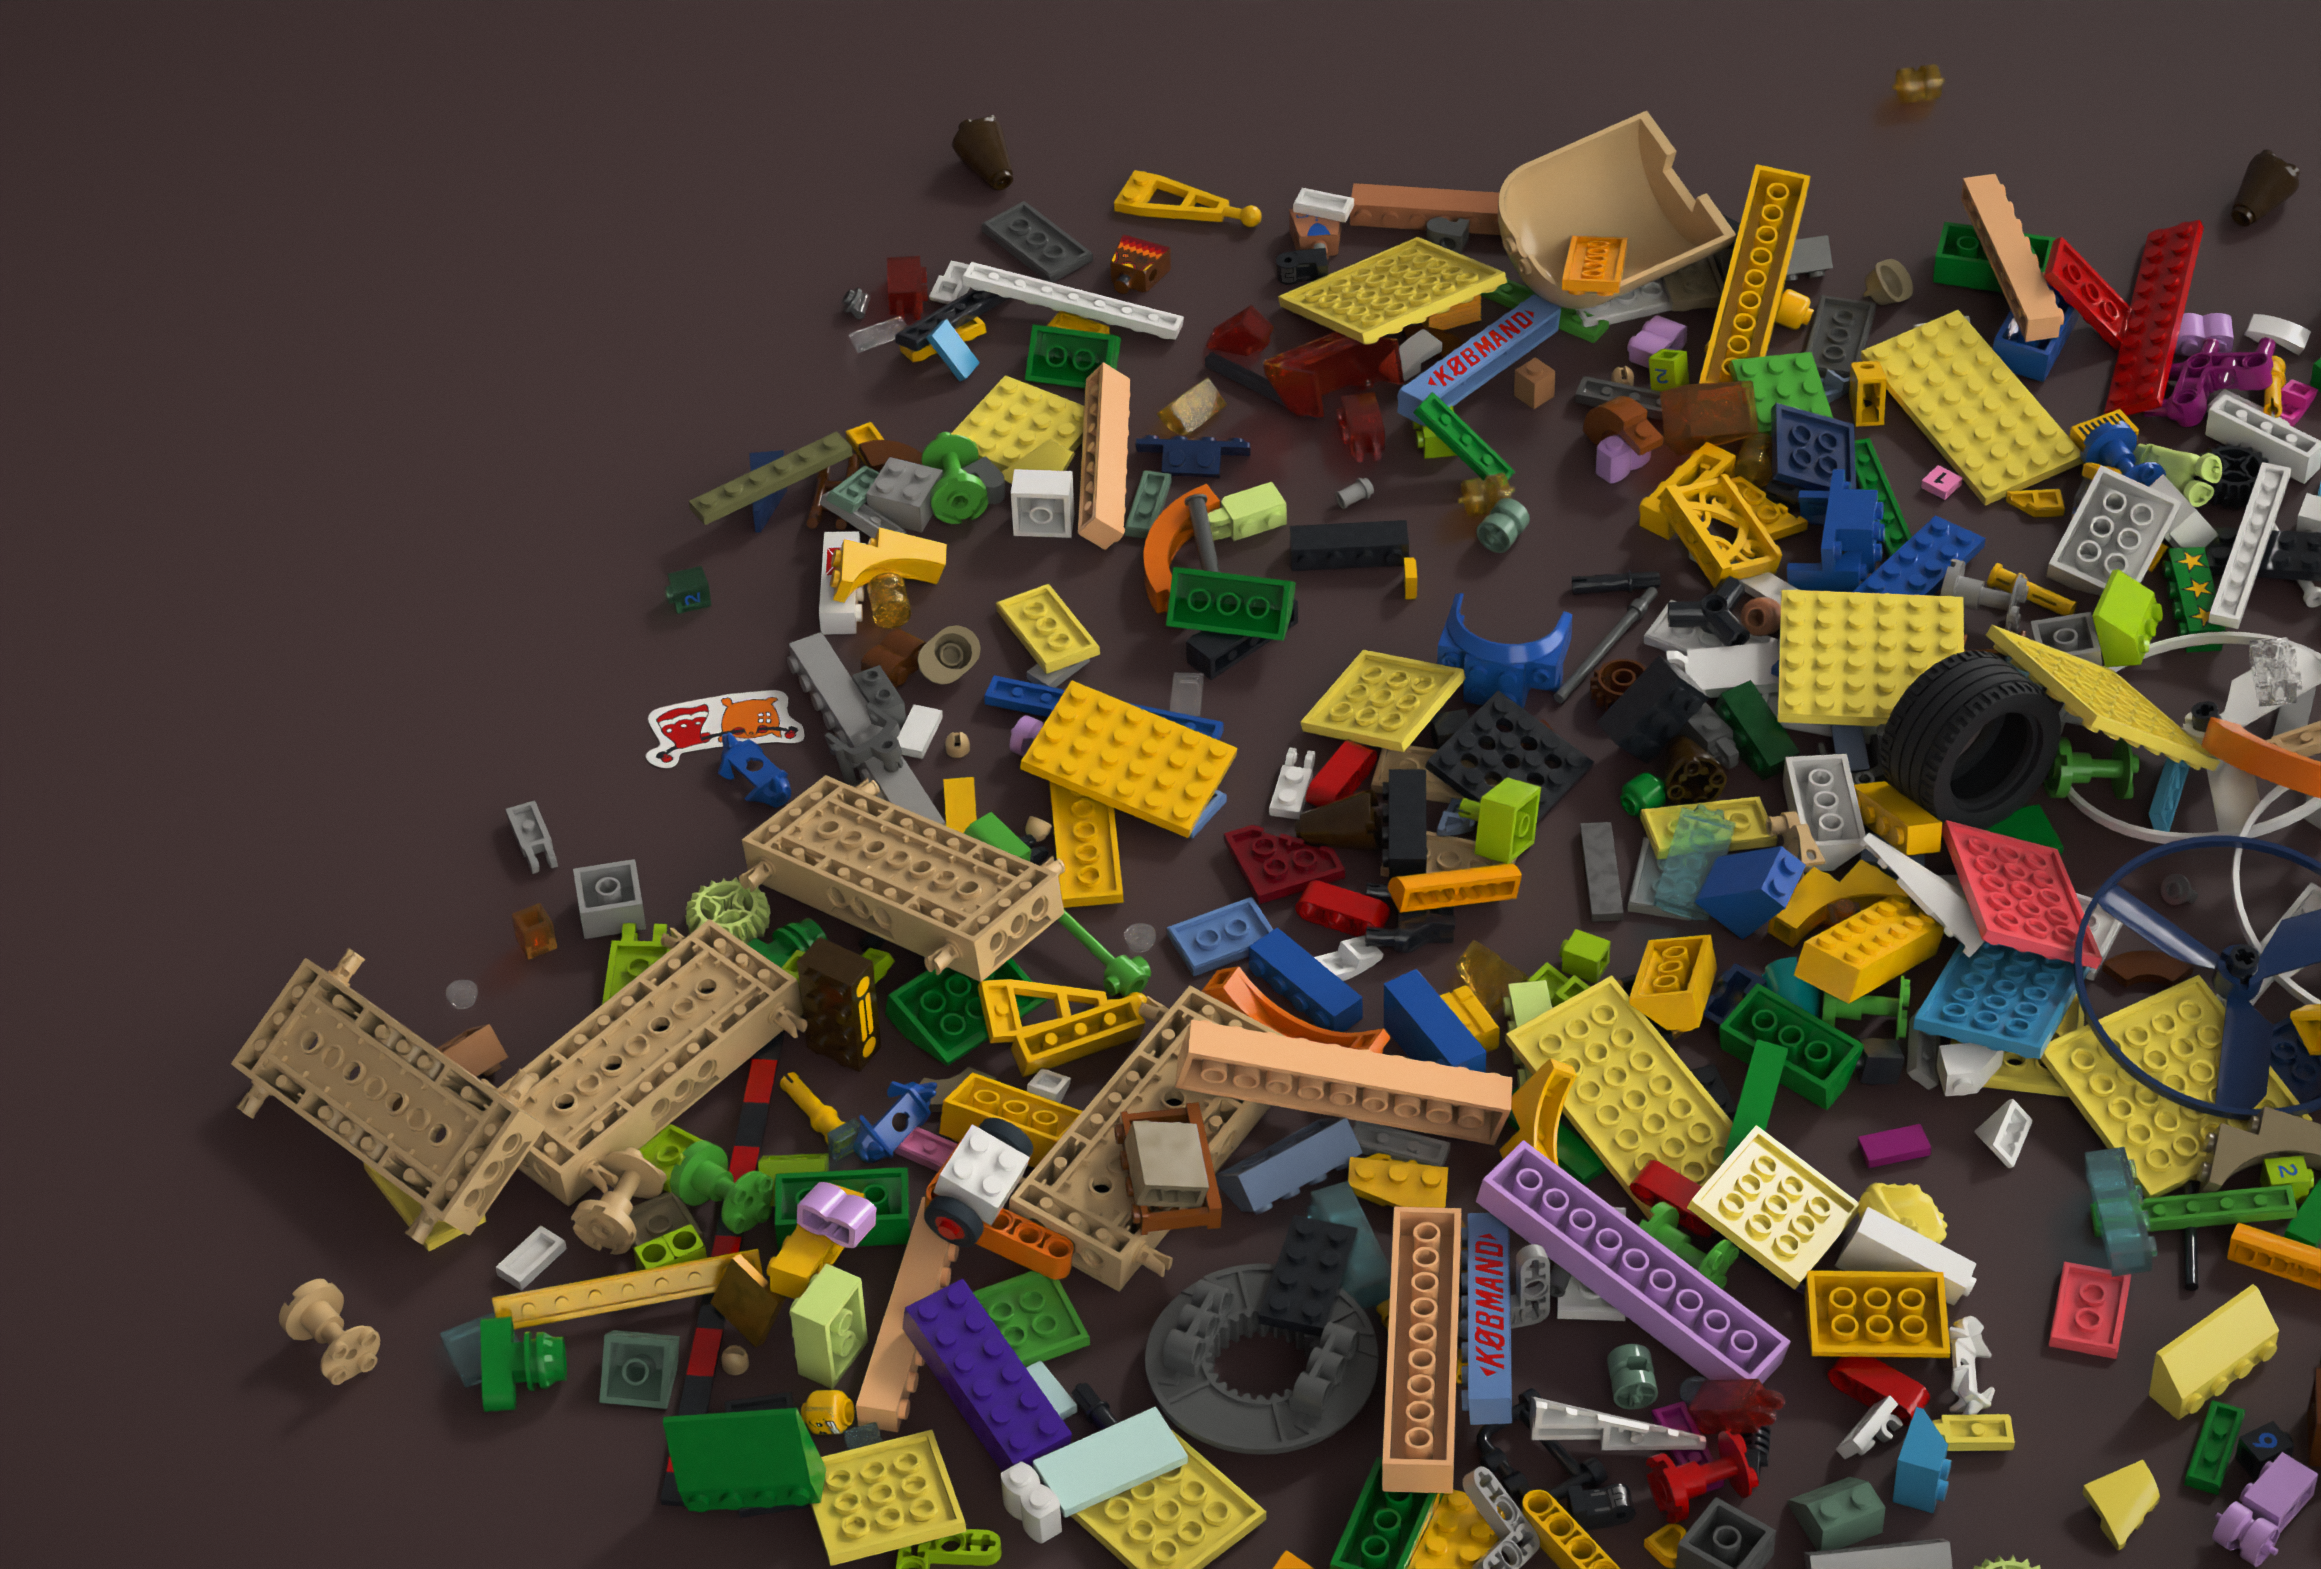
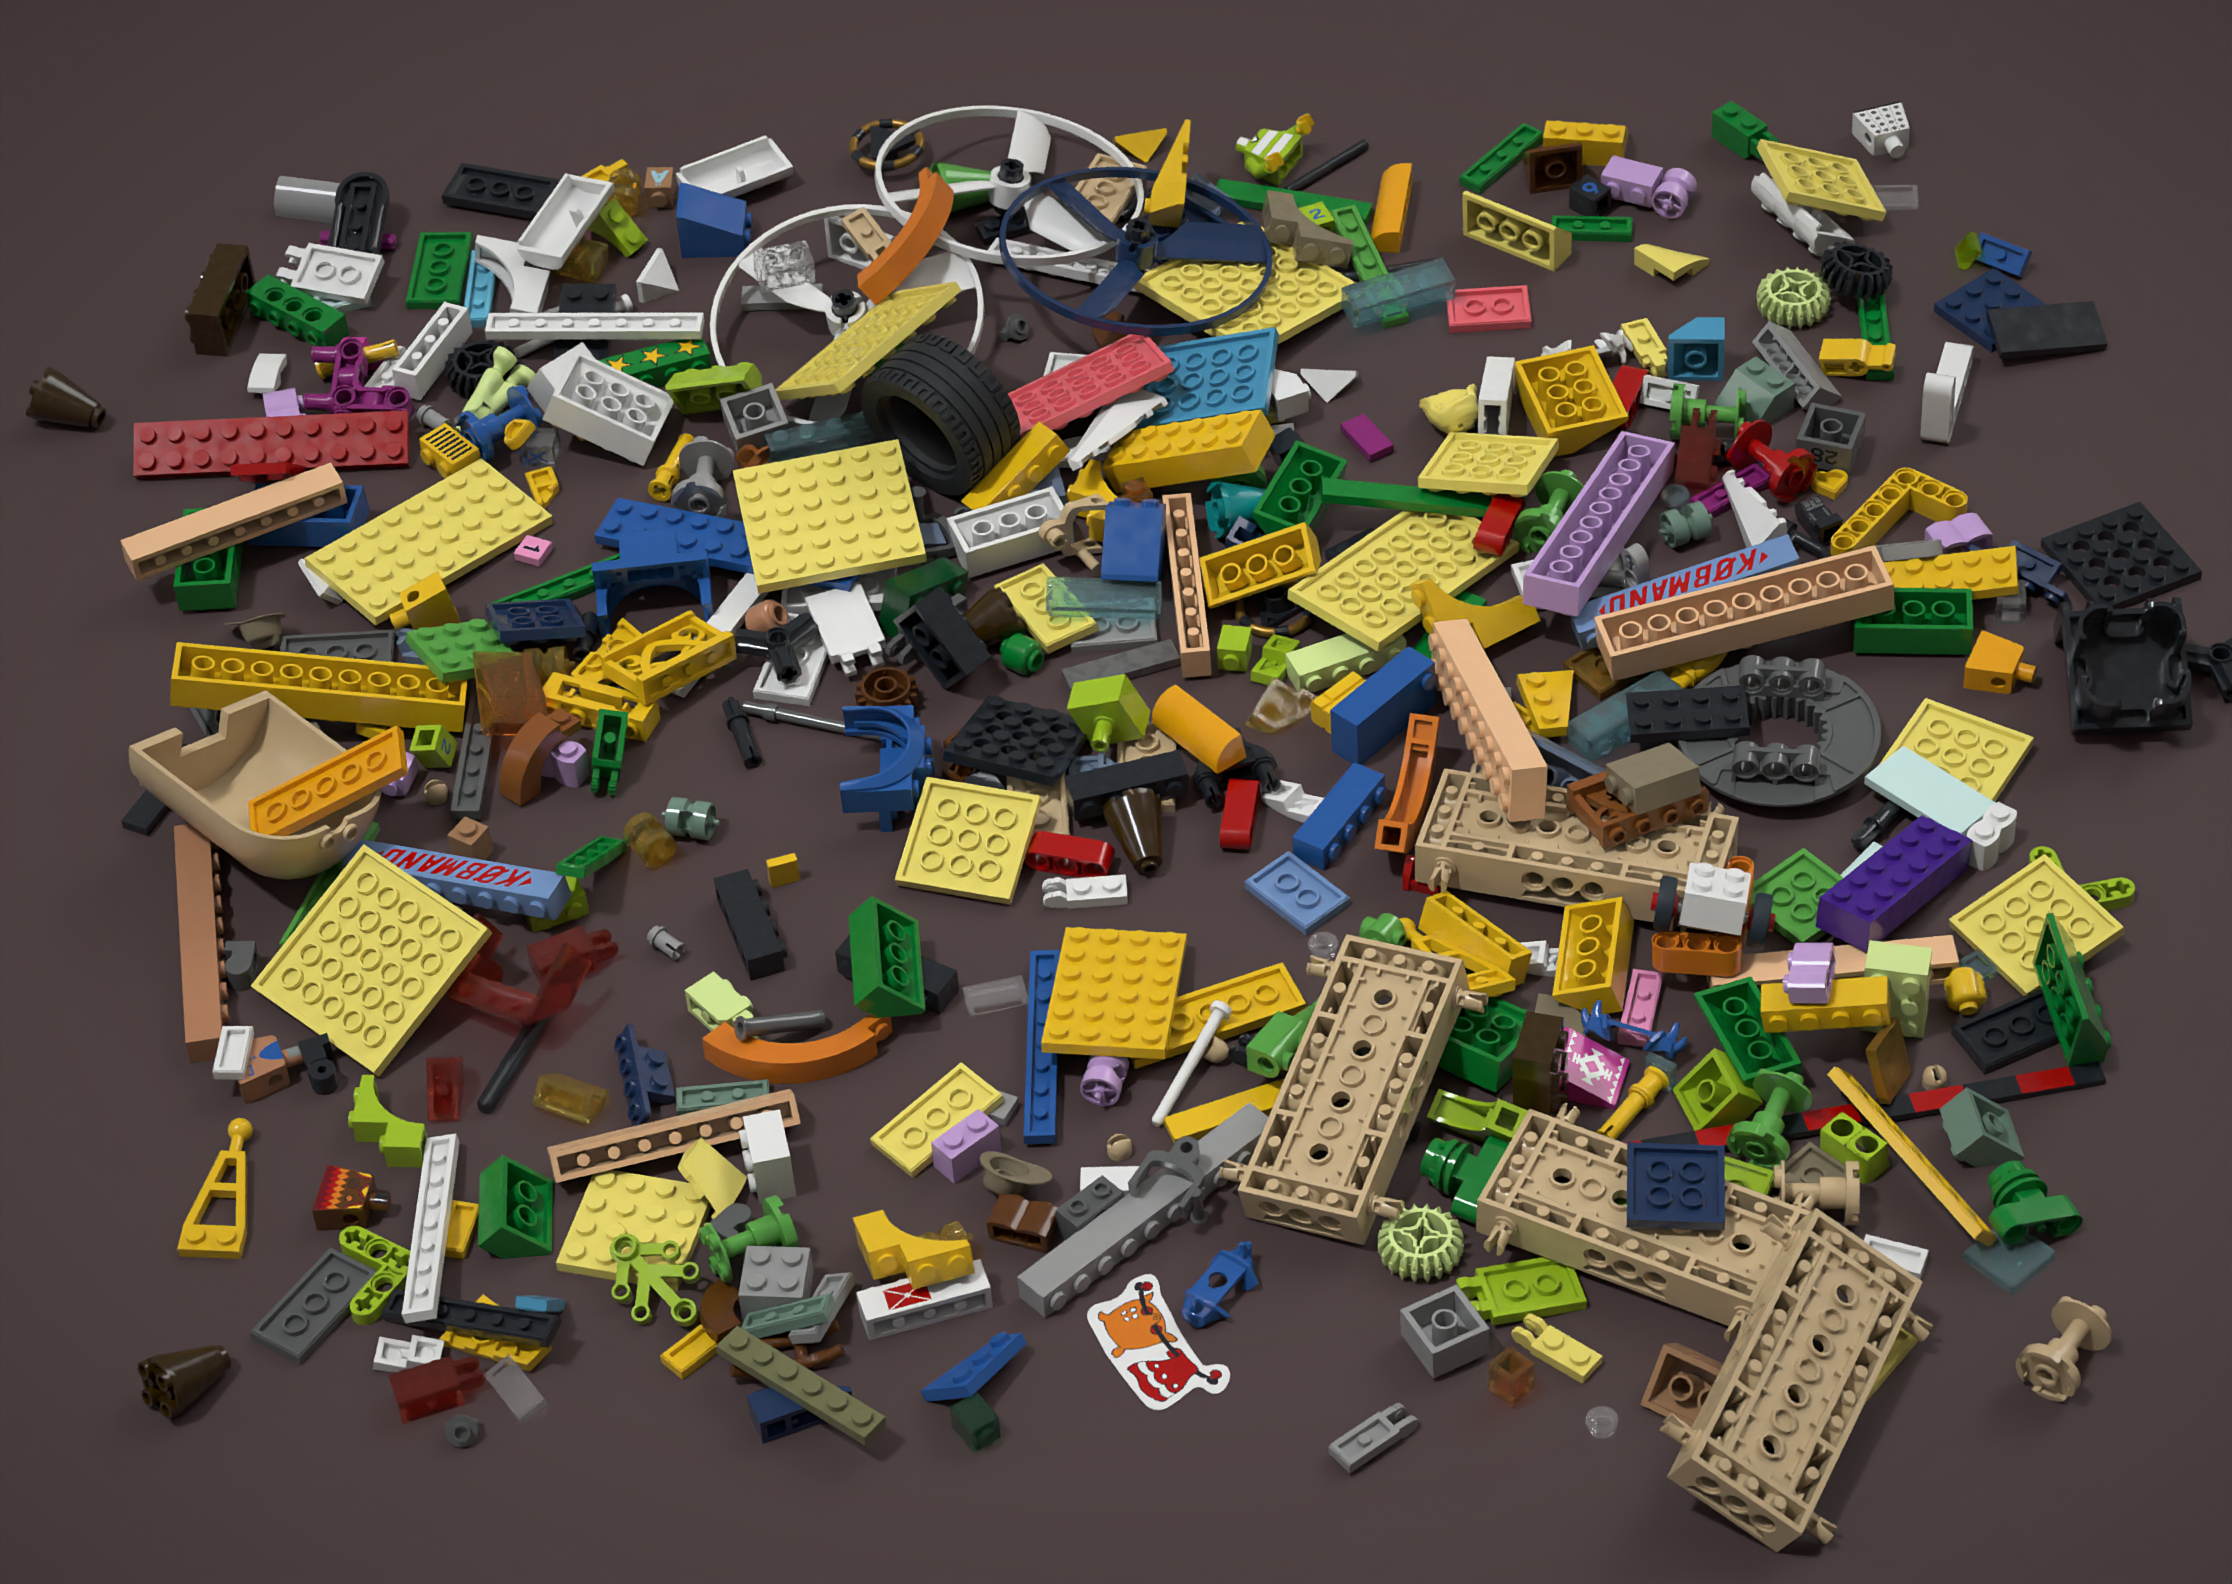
camera: 105 degrees left, 0 degrees up
(562, 985) = (1557, 1349): none -> light yellow hinge
(642, 1056) = (1675, 1186): none -> dark blue plate
(744, 598) = (976, 1369): none -> blue wing
(883, 1057) = (1594, 1072): none -> dark pink slope
(949, 419) = (651, 1276): none -> lime plant
(1000, 636) = (959, 1148): none -> lavender brick
(1070, 826) = (1220, 1011): none -> white bar
(1088, 271) = (386, 1269): none -> lime beam
(1218, 290) = (398, 1139): none -> lime arch
(1280, 864) = (1196, 871): dark red plate -> none
(1614, 479) = (608, 748): none -> green hinge
(1733, 935) = (1187, 586): none -> light nougat brick
(1814, 1419) = (1682, 410): none -> bright green piece
(2170, 433) = (428, 416): none -> light grey pin

